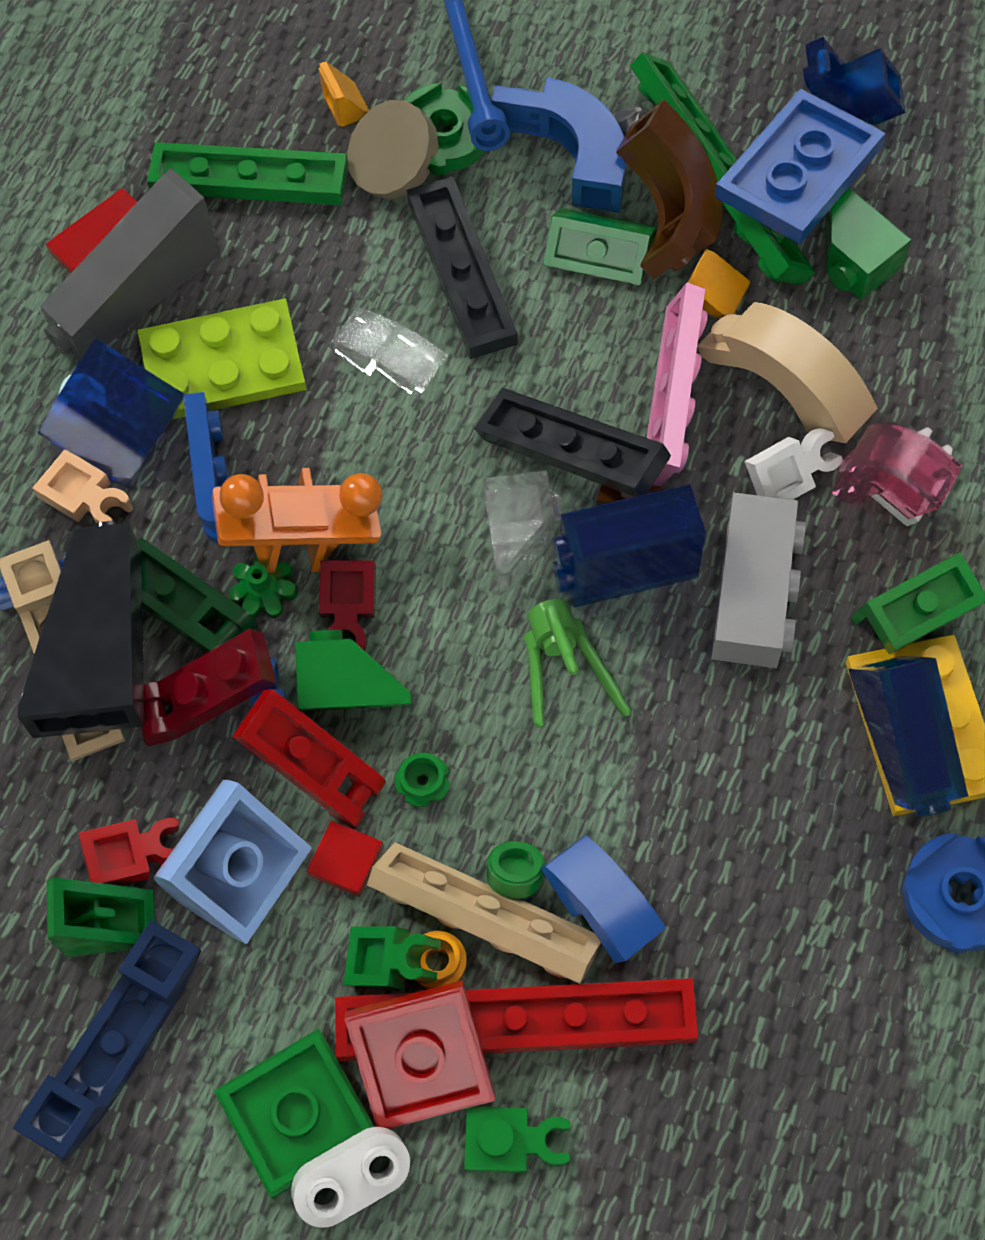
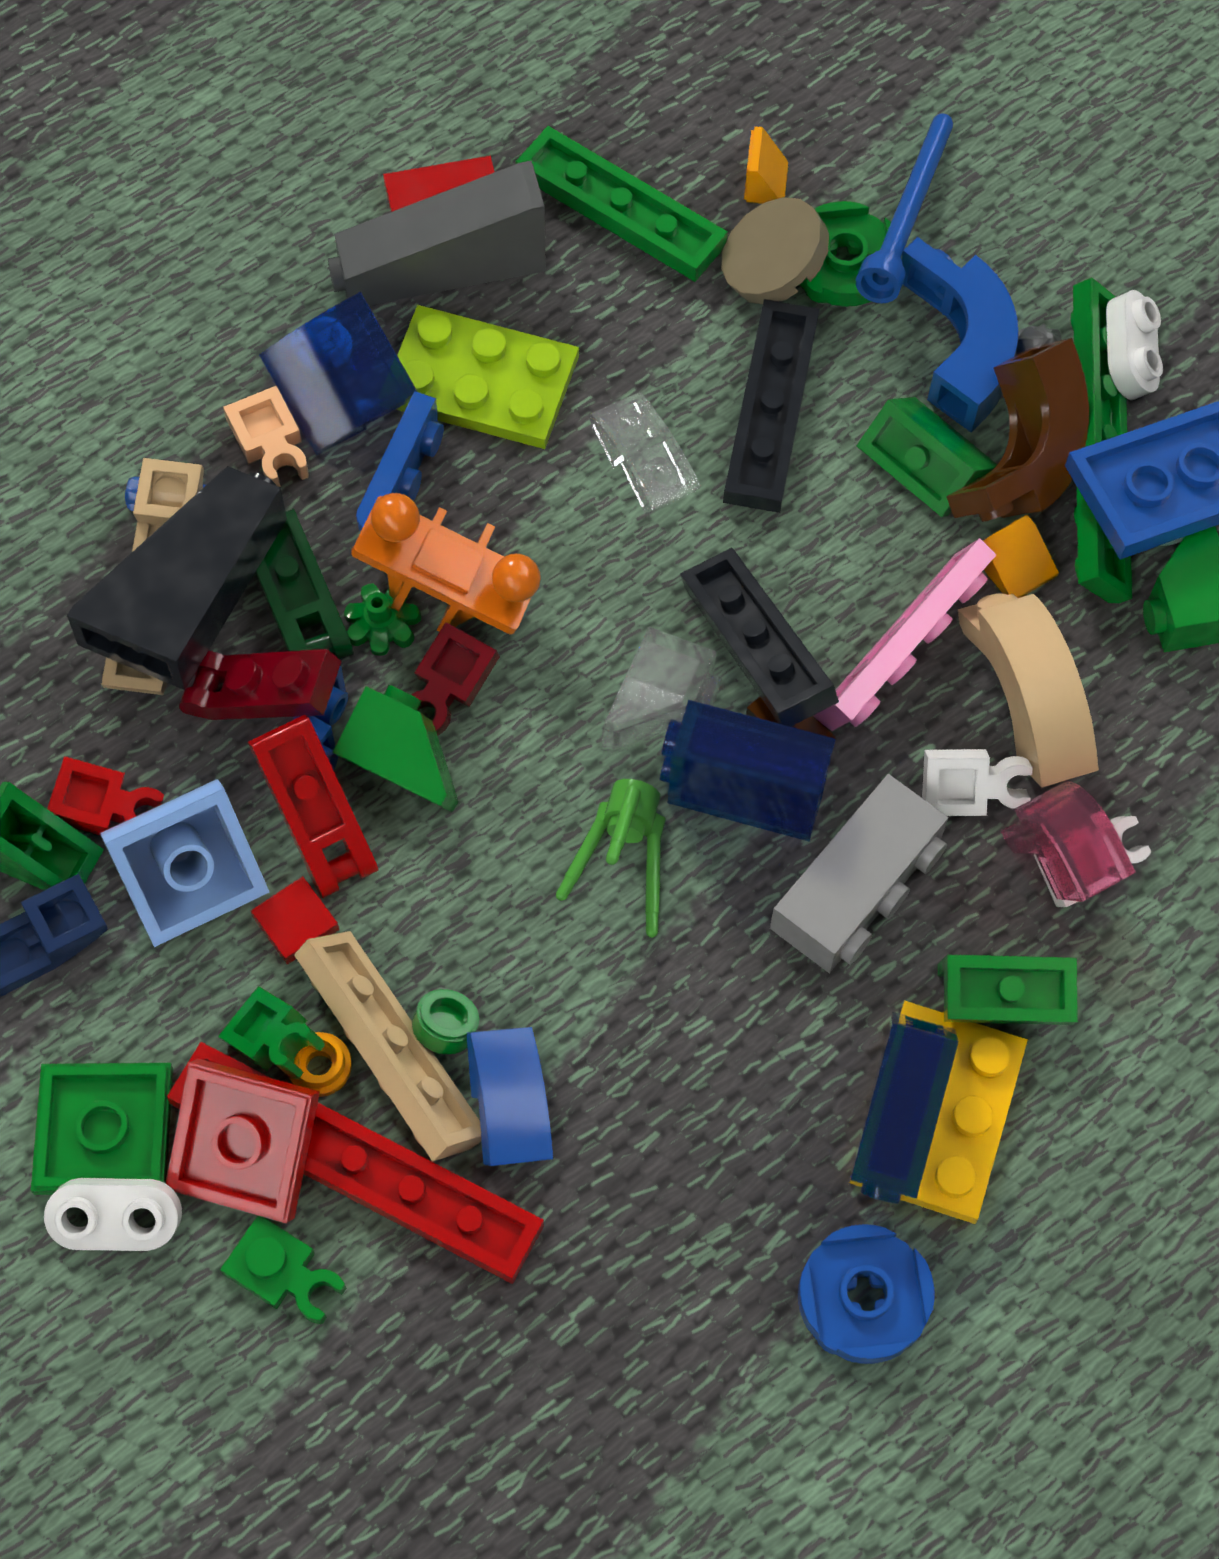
camera: 25 degrees right, 0 degrees up
(422, 765) = (410, 871): green plate -> none
(701, 92) = (1133, 344): none -> white plate

